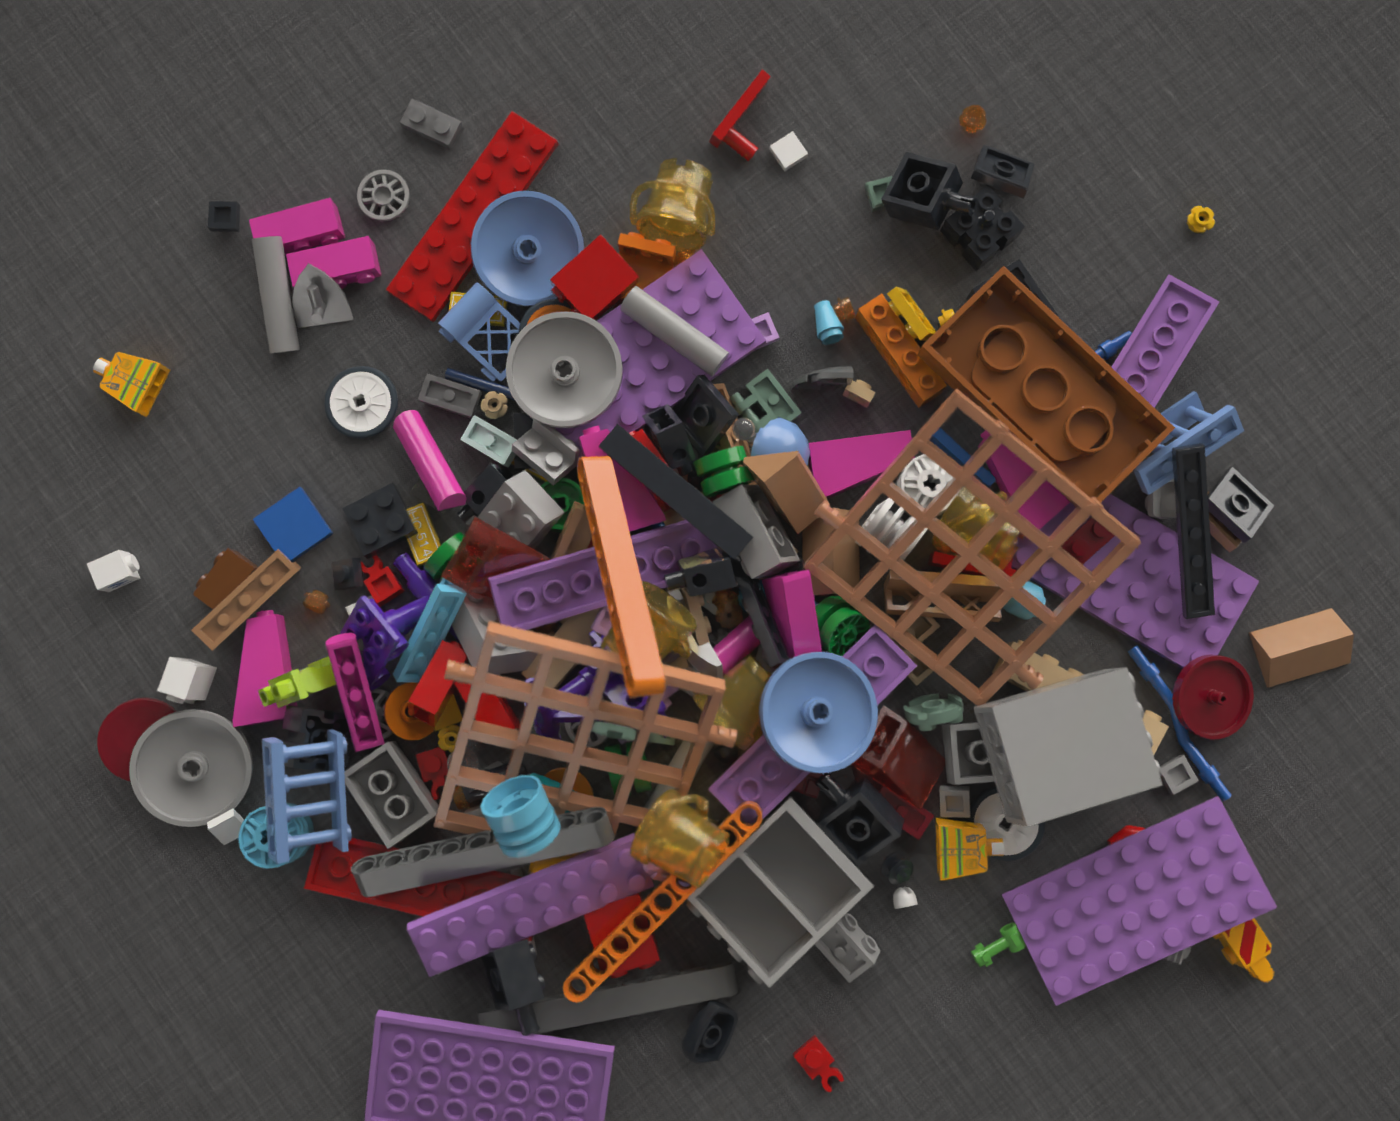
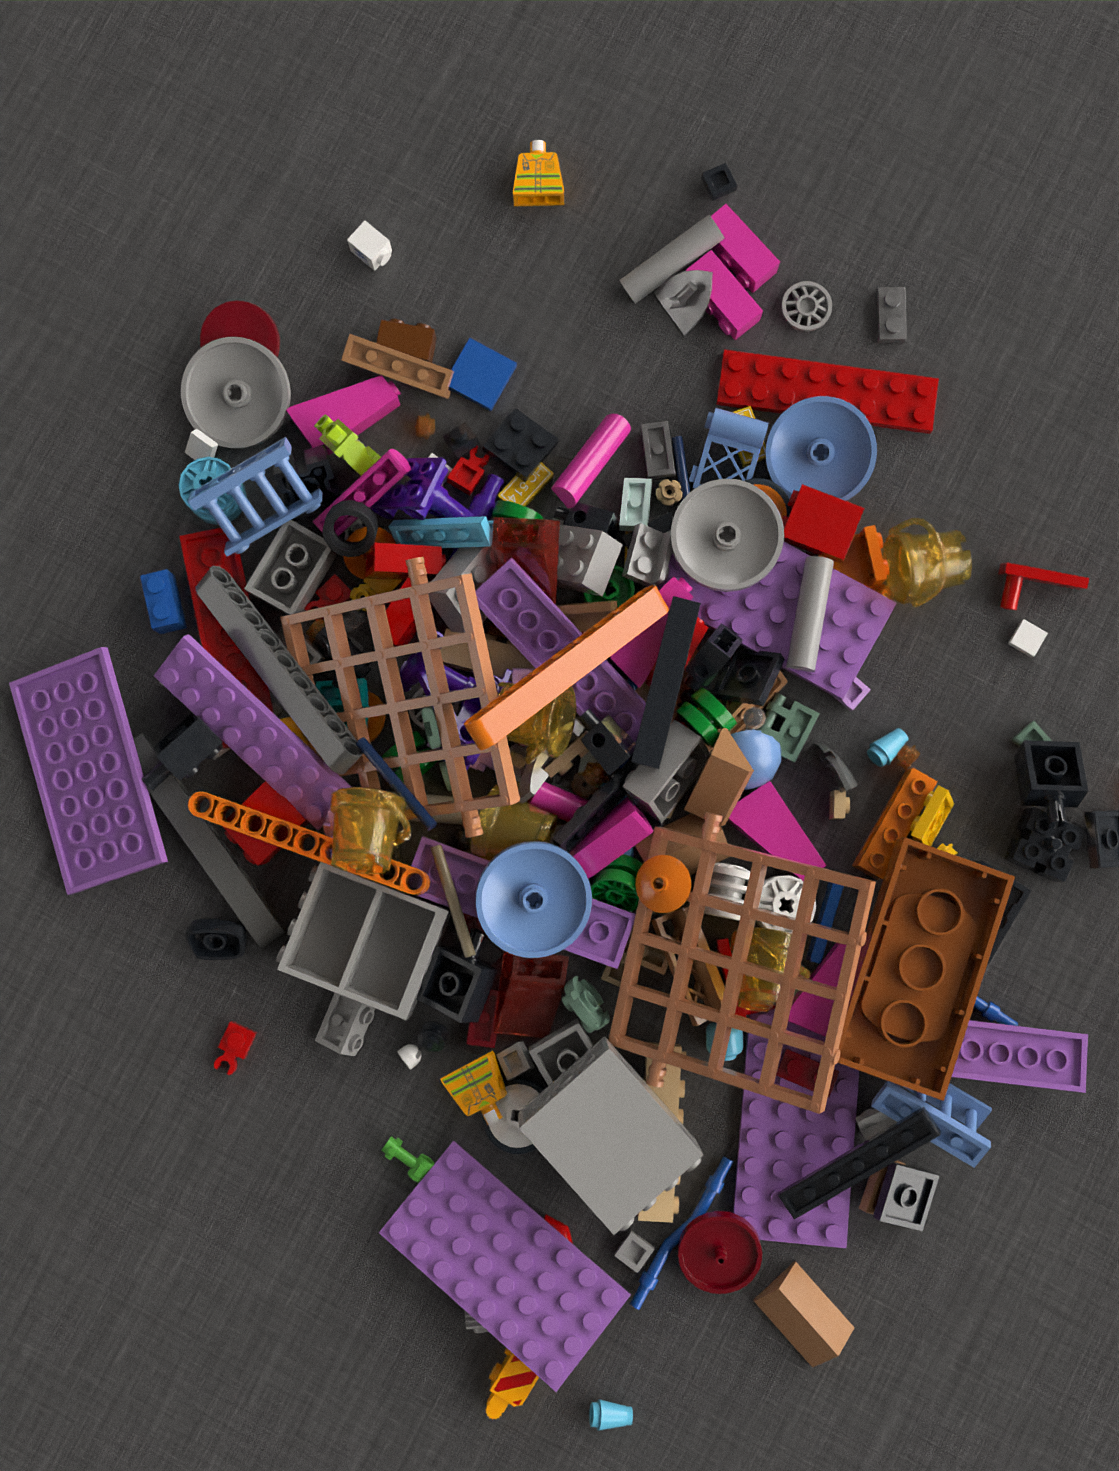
camera: 65 degrees right, 0 degrees up
(186, 680) = (306, 351): white brick -> none
(355, 385) = (611, 395): white wheel -> none
(360, 934) = (163, 601): none -> blue brick
(395, 733) = (355, 509): none -> black tyre
(520, 816) = (321, 684): medium azure wheel -> none
(648, 790) = (395, 782): none -> dark blue bar
(783, 788) = (453, 901): none -> dark tan bar
(865, 572) = (675, 883): none -> orange dish
(1314, 868) = (609, 1415): none -> medium azure cone

